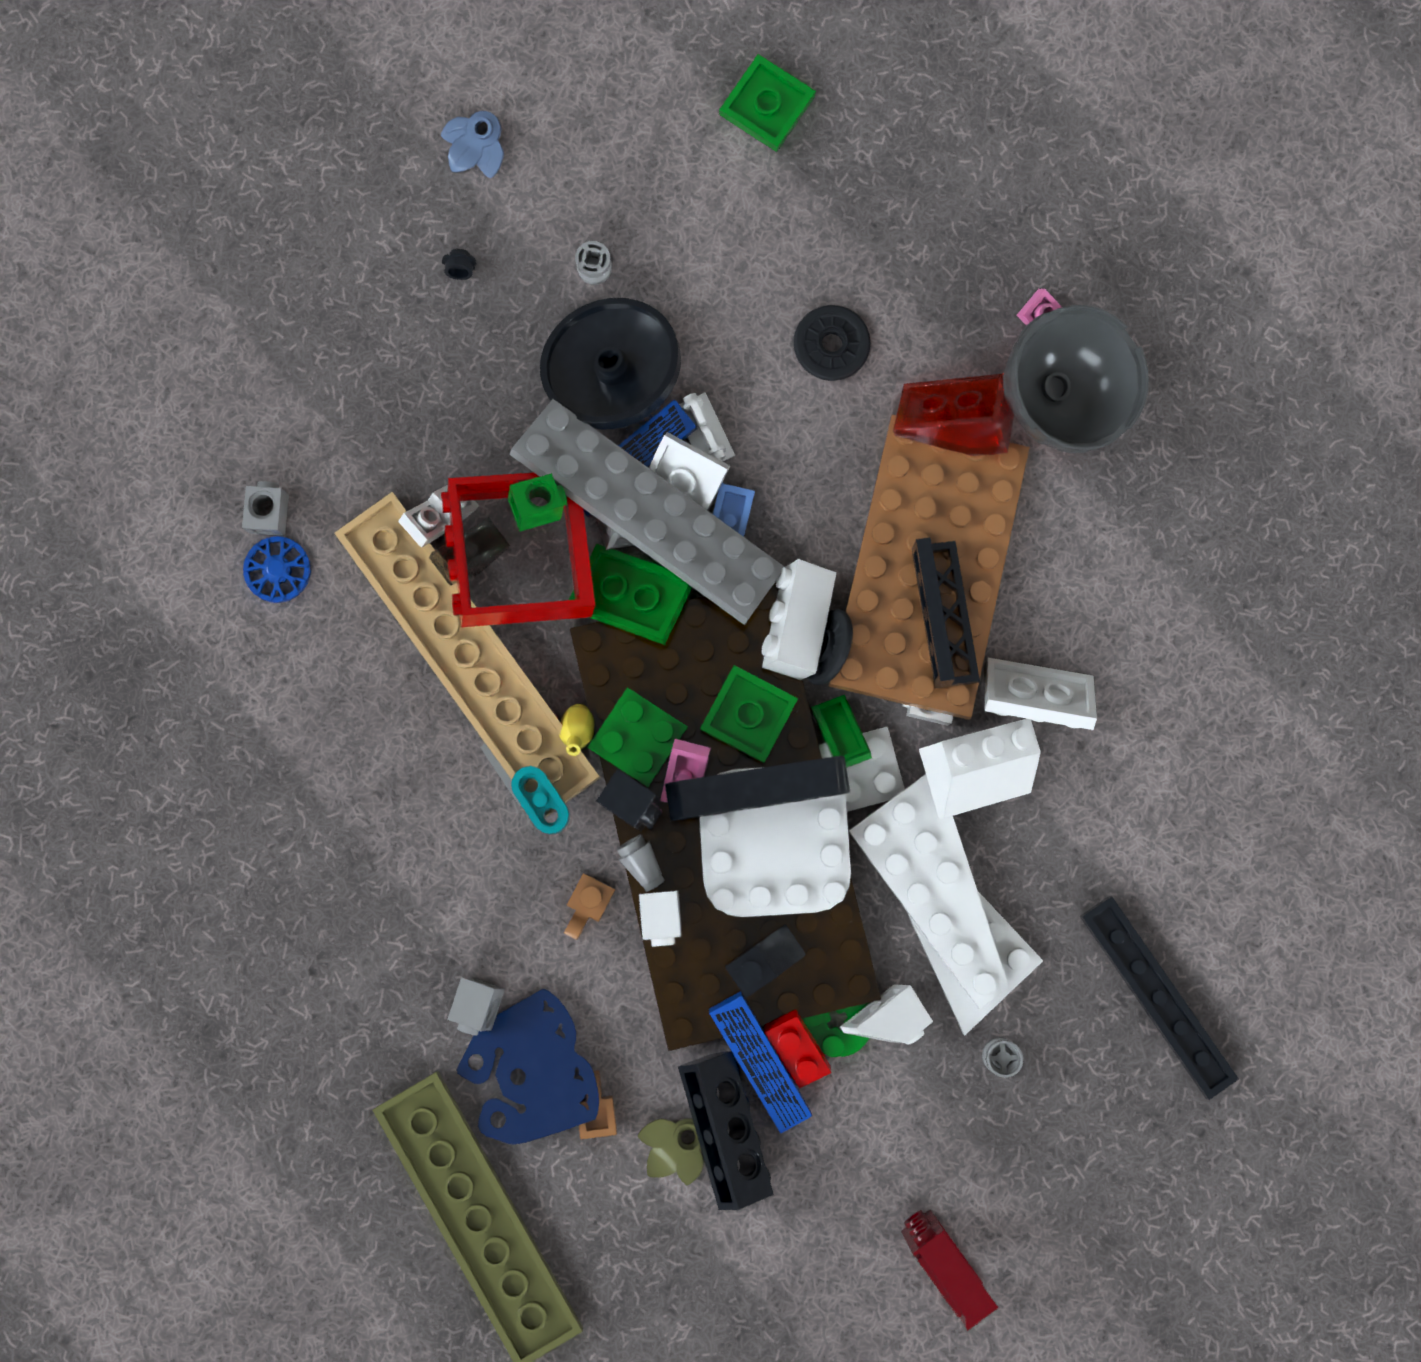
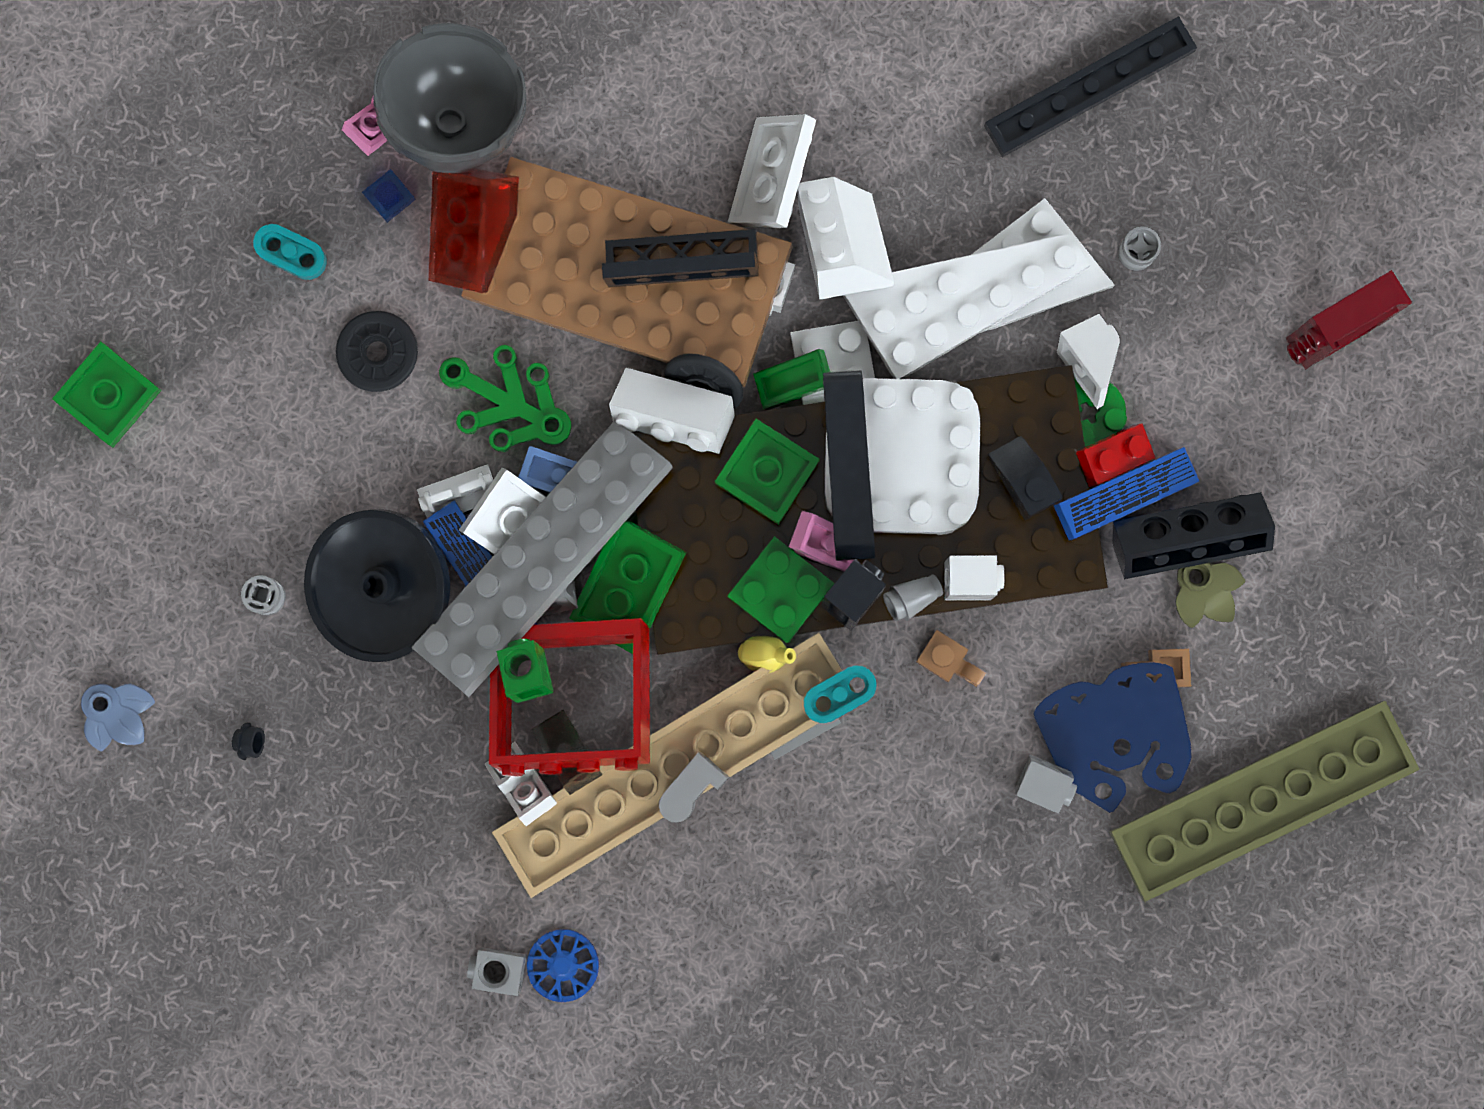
camera: 85 degrees left, 0 degrees up
(433, 660) = (680, 797): none -> light grey leg
(794, 470) = (511, 403): none -> green plant
(916, 254) = (291, 252): none -> teal plate
(980, 338) = (388, 195): none -> clear blue plate

